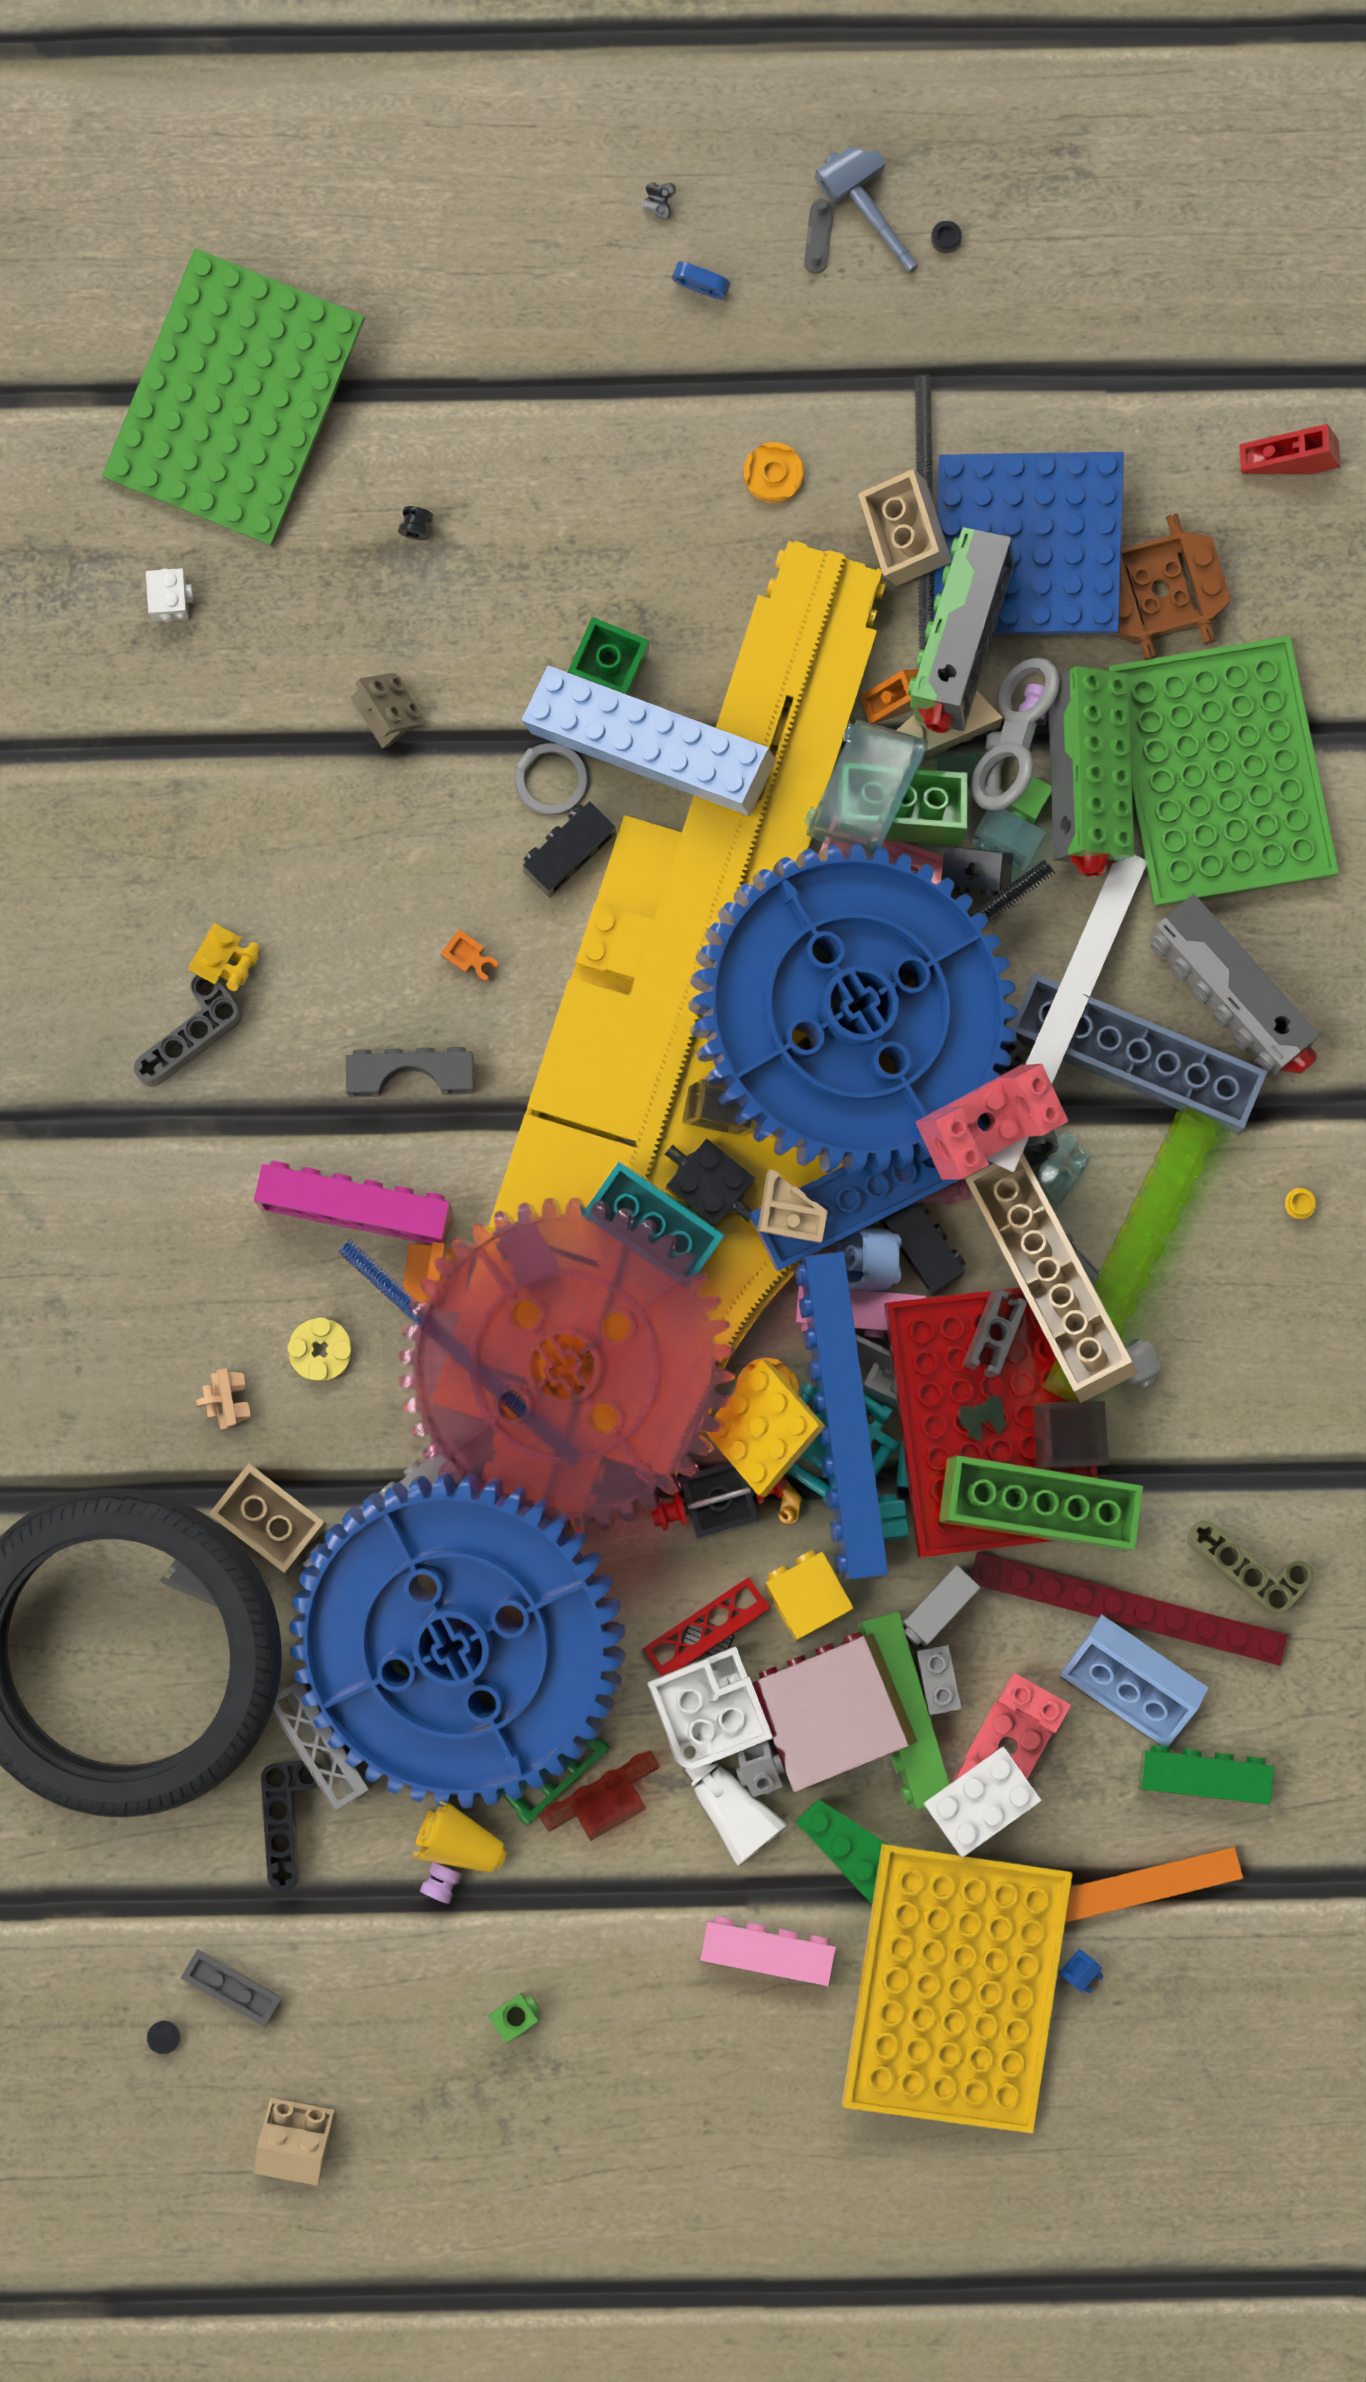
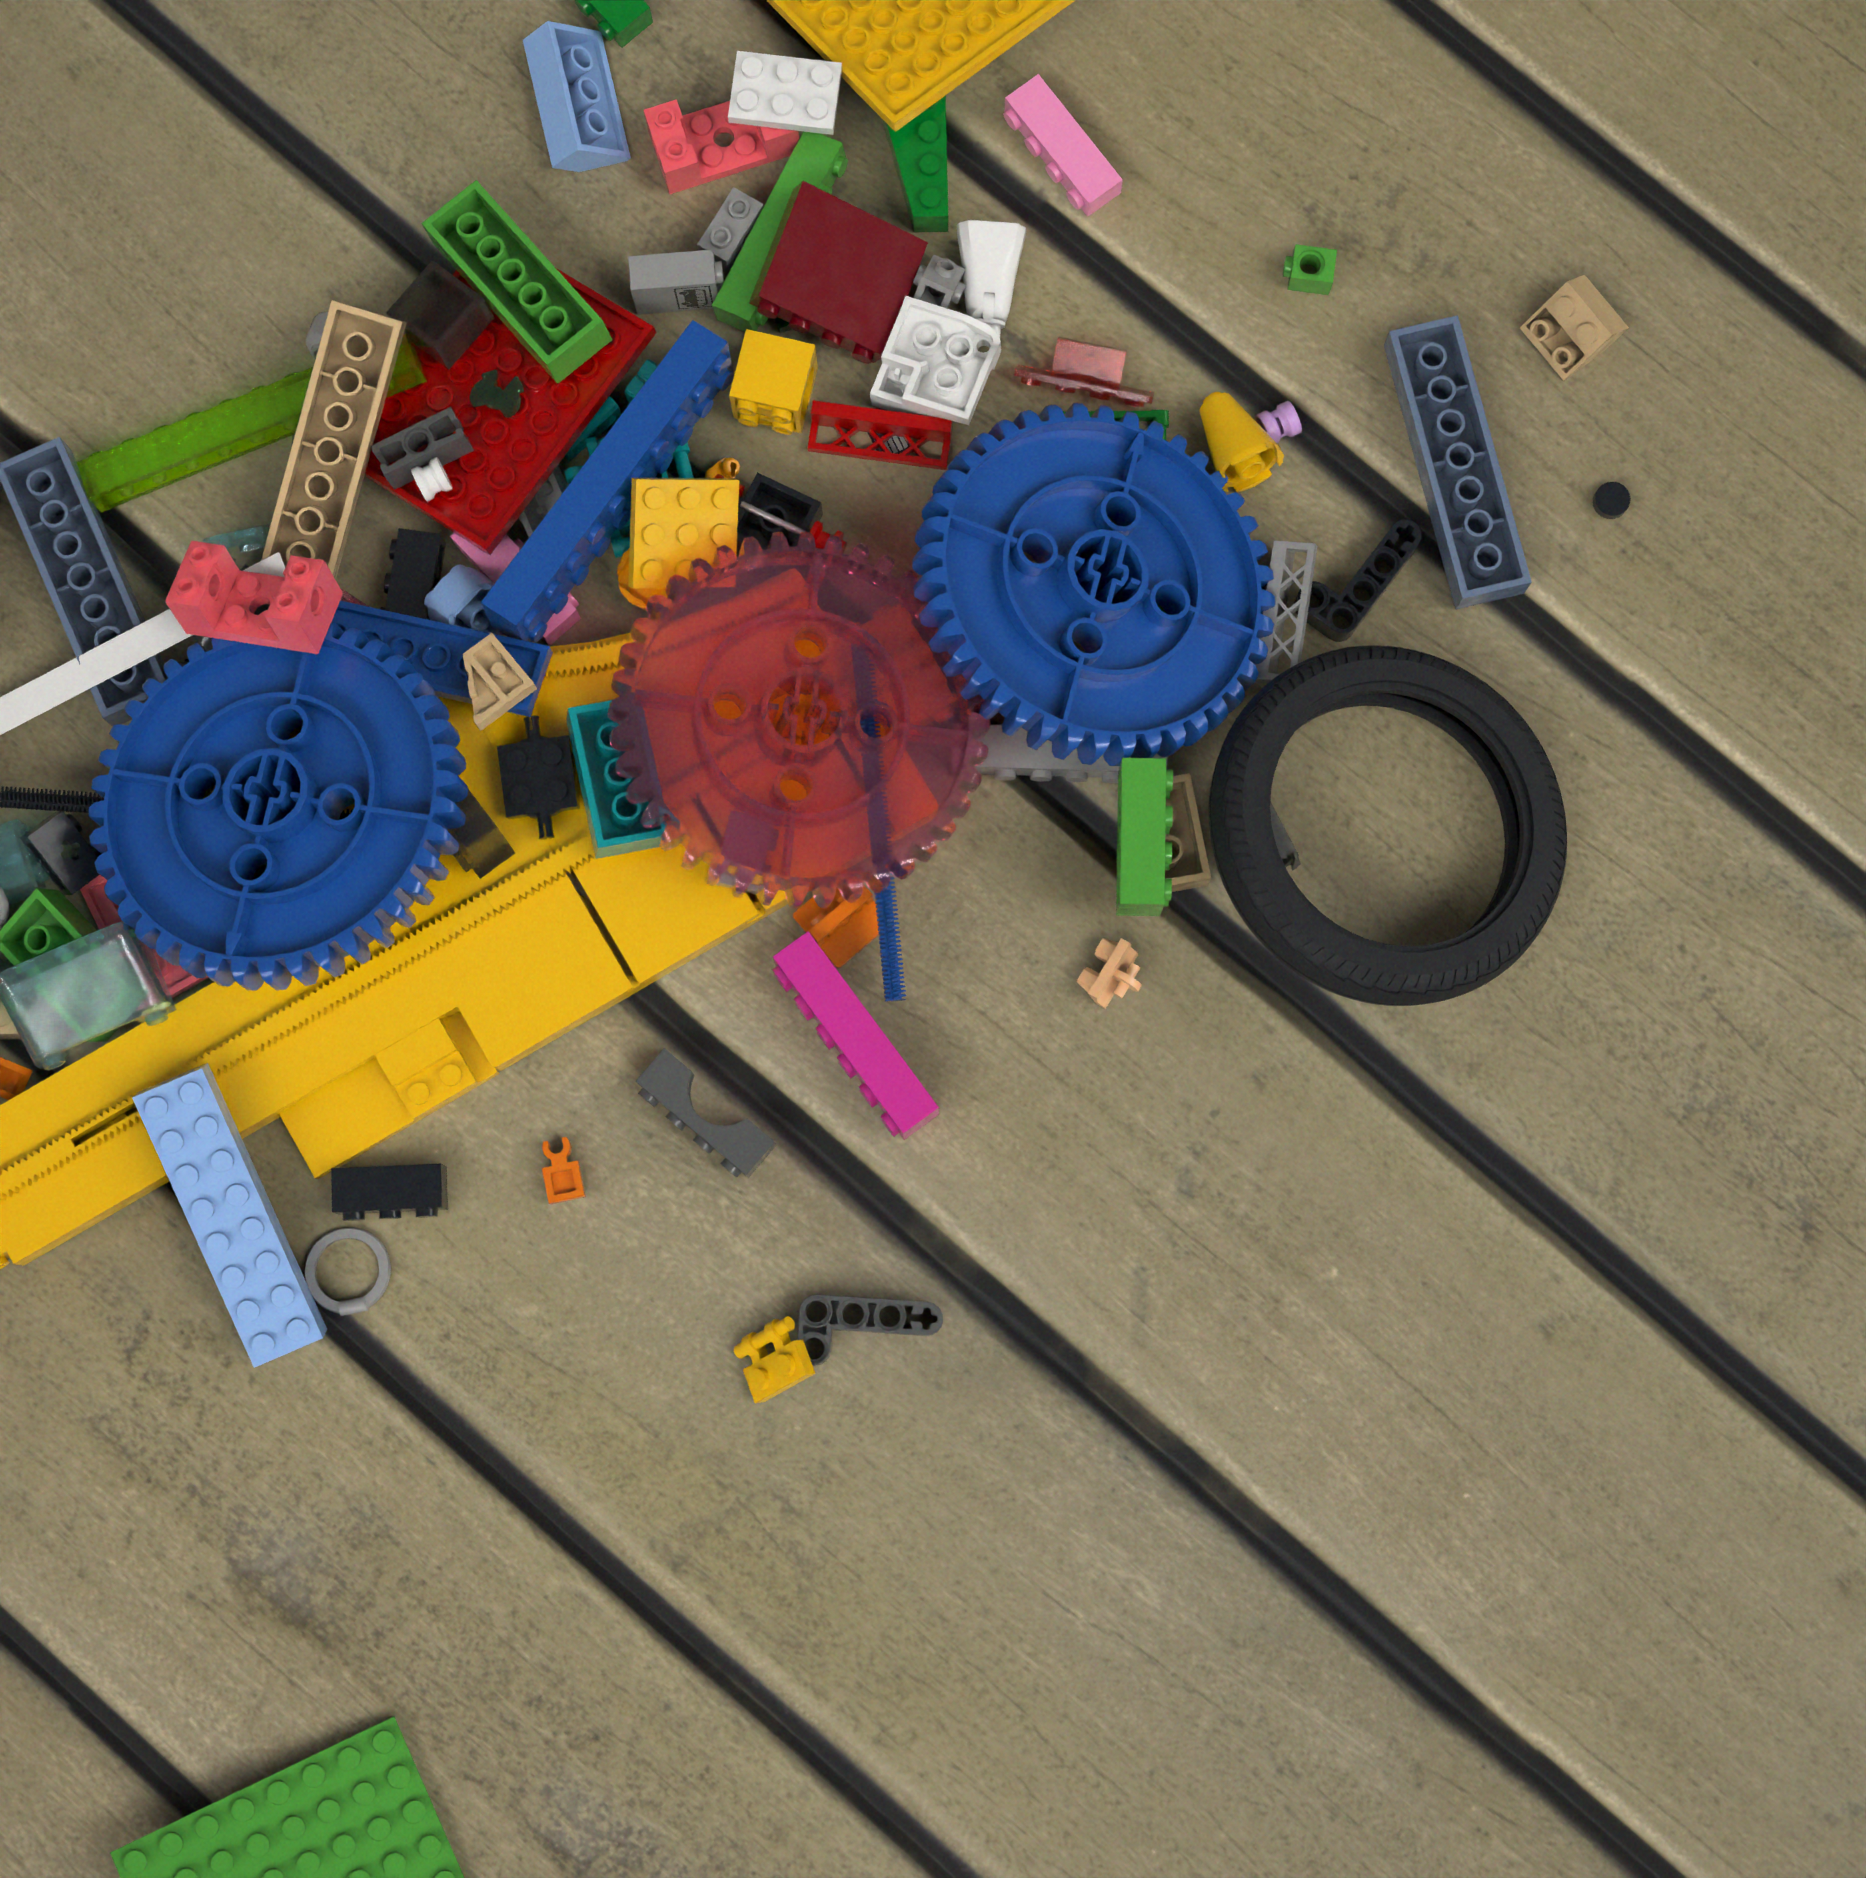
camera: 135 degrees left, 0 degrees up
(168, 595) = (526, 1750): white head -> none
(231, 1987) = (1525, 491): dark grey plate -> none
(272, 1490) = (1141, 834): none -> bright green brick
(291, 1962) = (1457, 462): none -> sand blue brick
(338, 1350) = (979, 960): light yellow plate -> none
(387, 707) = (429, 1463): dark tan bracket -> none
(415, 523) = (248, 1615): black wheel -> none
(609, 656) = (194, 1328): green brick -> none
(967, 1316) = (431, 479): none -> white wheel
(1128, 1609) = (527, 159): dark red plate -> none
(1244, 1562) = (403, 111): olive beam -> none
(1300, 1203) = (77, 350): yellow plate -> none

